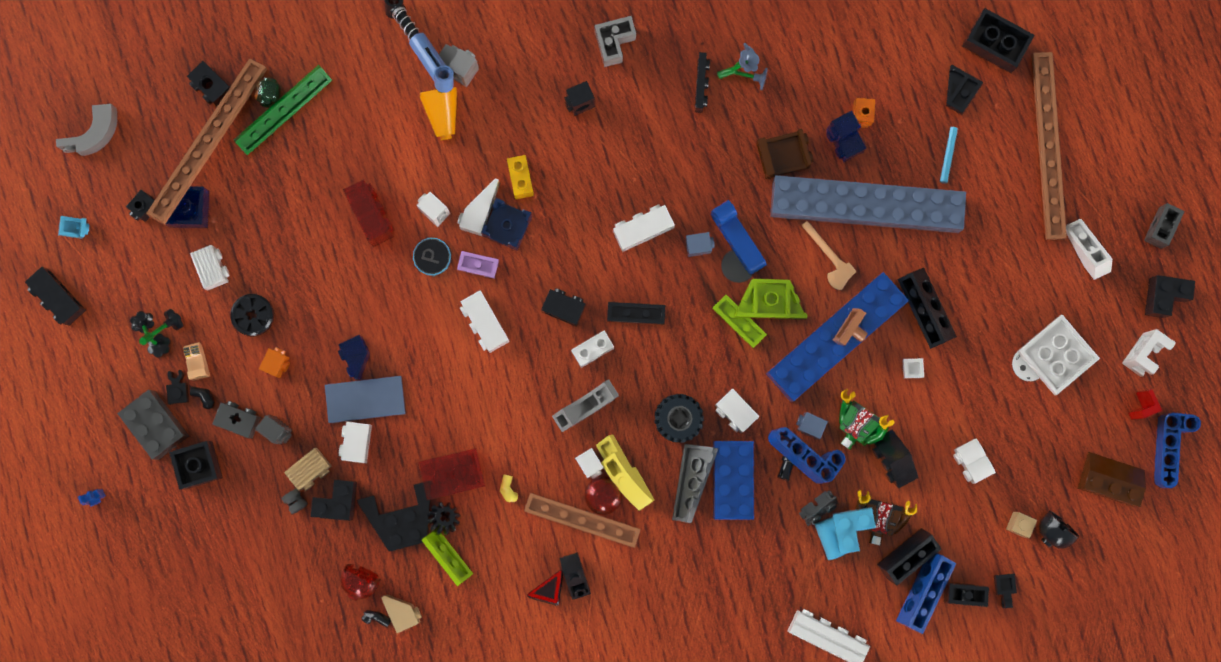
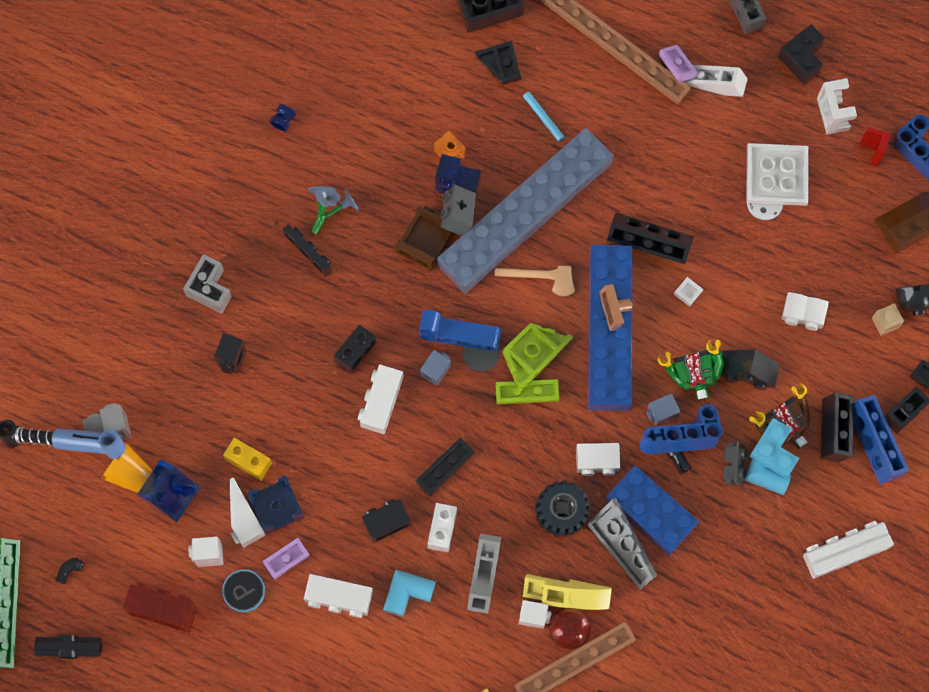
camera: 45 degrees left, 10 degrees down
(291, 177) = (68, 646): none -> black piece
(342, 127) = (67, 567): none -> black arm
(450, 145) = (168, 490): none -> clear blue brick
(531, 360) = (405, 586): none -> medium azure brick
(661, 178) = (355, 349): none -> black brick
(823, 158) = (458, 210): none -> dark grey brick
(1076, 212) = (677, 63): none -> lavender plate

